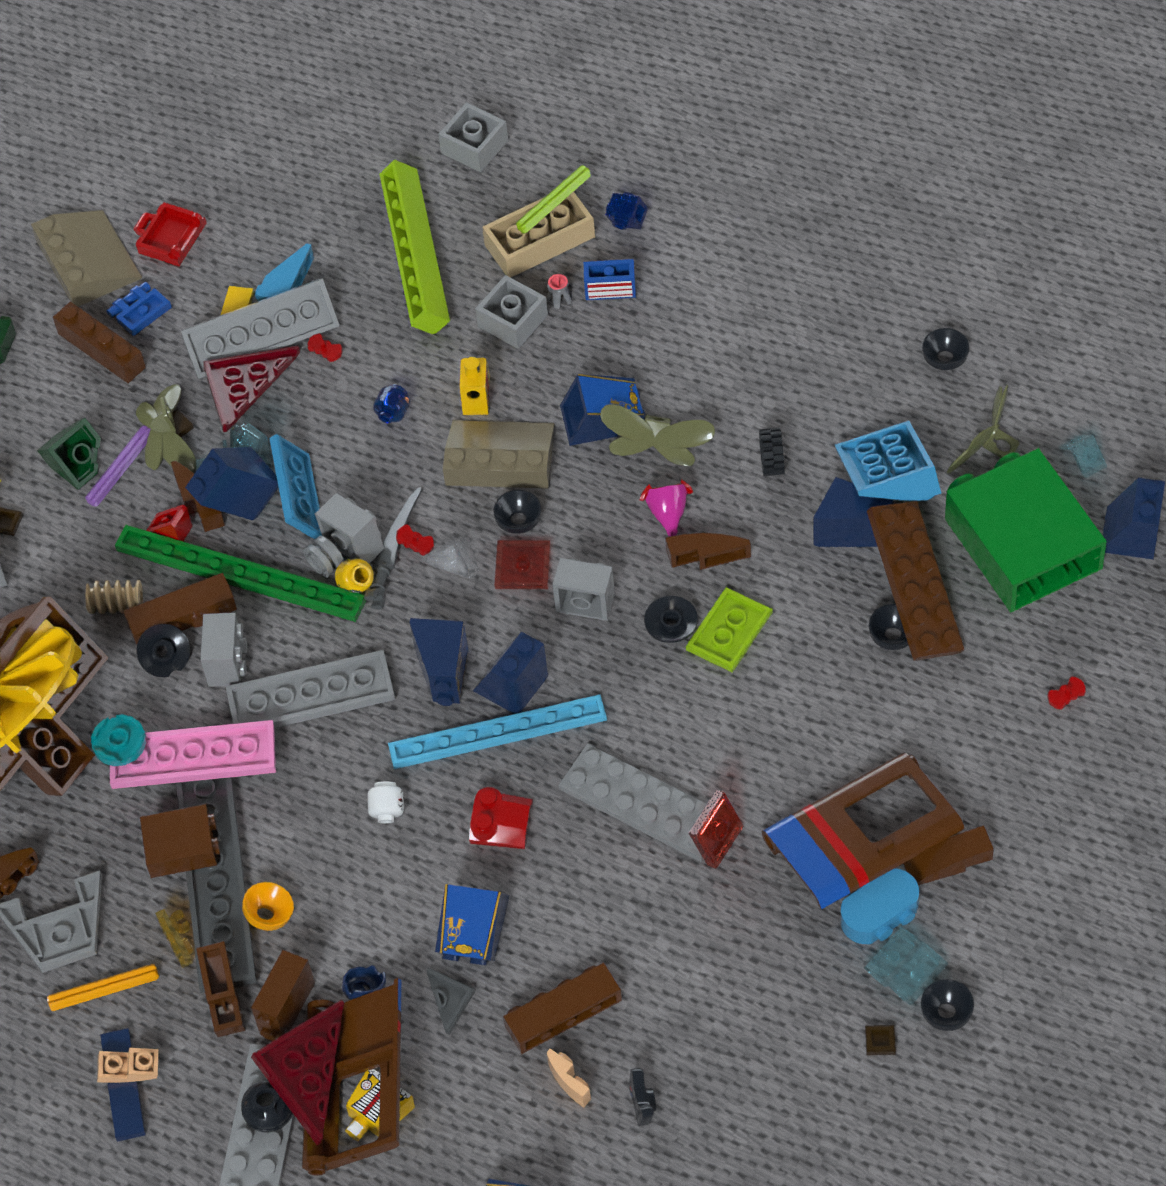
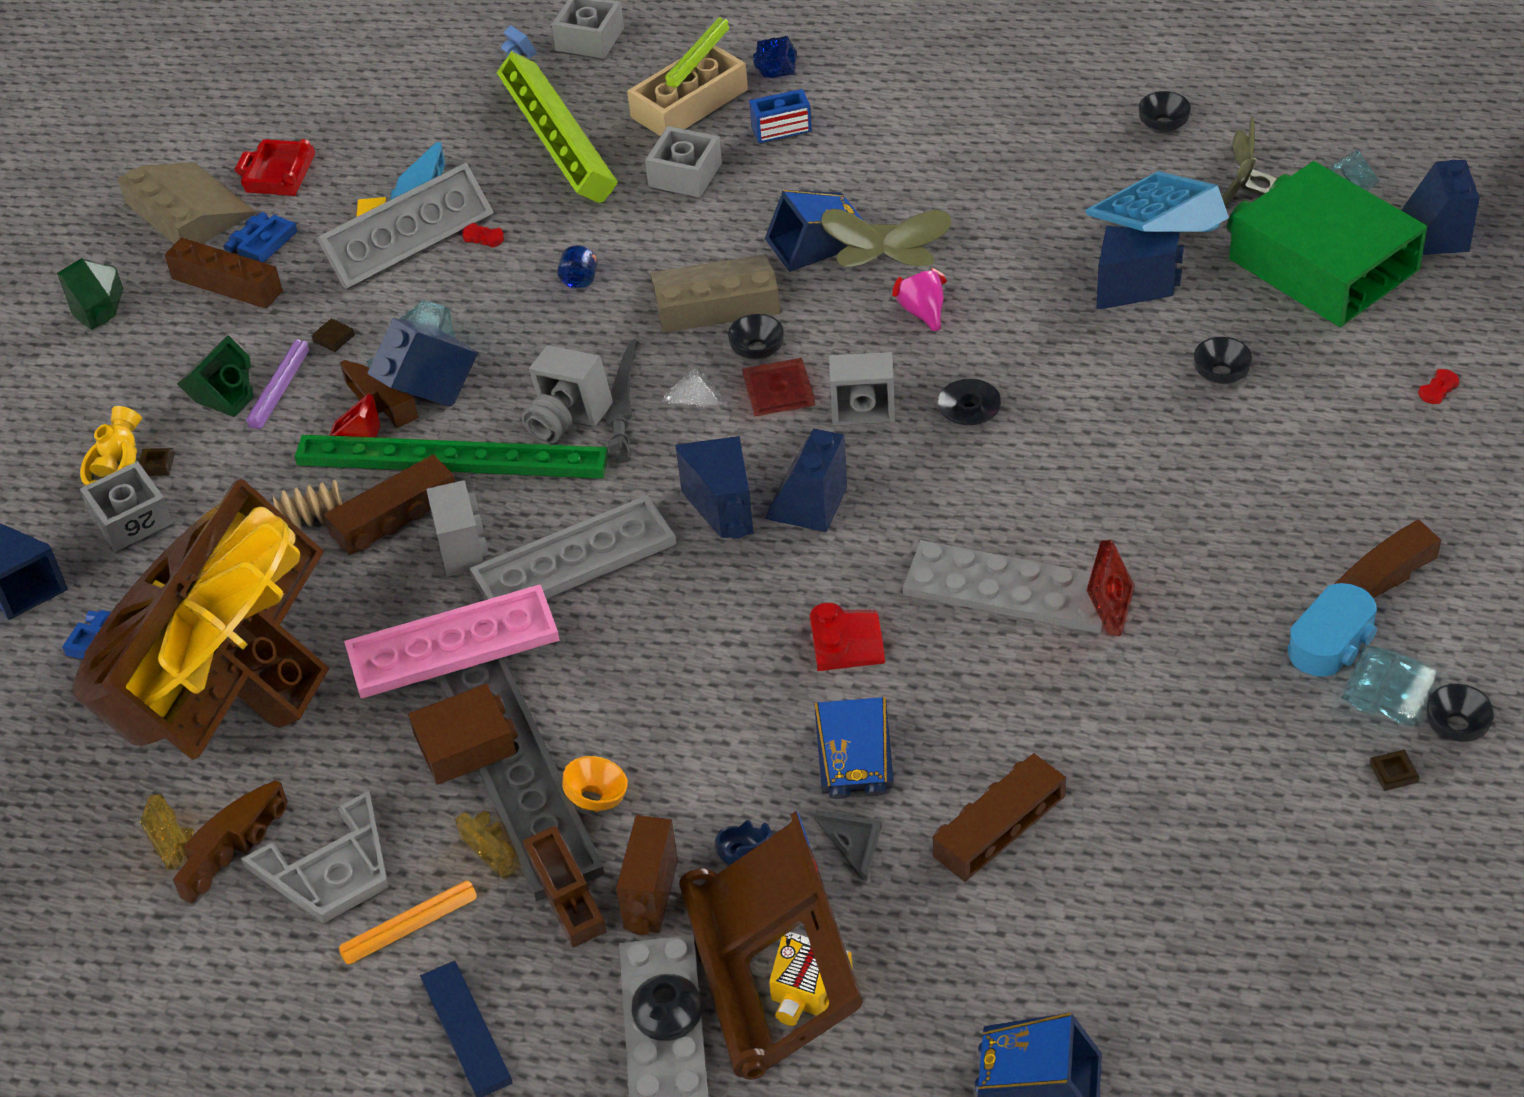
camera: 15 degrees left, 10 degrees down
(118, 740) = (357, 641): teal tile -> none
(129, 1066) = (475, 1001): light nougat slope -> none
(162, 439) = (321, 345): olive piece -> none
(177, 650) = (383, 532): black dish -> none
(242, 379) = (401, 276): dark red tile -> none
(296, 486) = (494, 357): dark azure tile -> none
(303, 1066) = (703, 948): dark red tile -> none
(354, 575) = (589, 428): yellow head -> none
(385, 801) = (702, 645): white head -> none
(407, 142) = (517, 43): none -> medium blue tile
(414, 540) = (645, 386): red piece -> none
(474, 377) = (661, 218): yellow torso -> none
(497, 731) = (807, 552): medium azure tile -> none
(558, 285) = (727, 129): piece -> none
(563, 1071) = (1025, 886): light nougat slope -> none
(642, 1098) = (1137, 895): black piece -> none
(706, 549) = (982, 330): reddish brown slope -> none
(729, 629) = (1037, 402): lime tile -> none
(771, 451) = (1019, 227): black tyre -> none
(836, 855) = (1265, 584): reddish brown piece -> none
(915, 580) = (1233, 307): reddish brown plate -> none

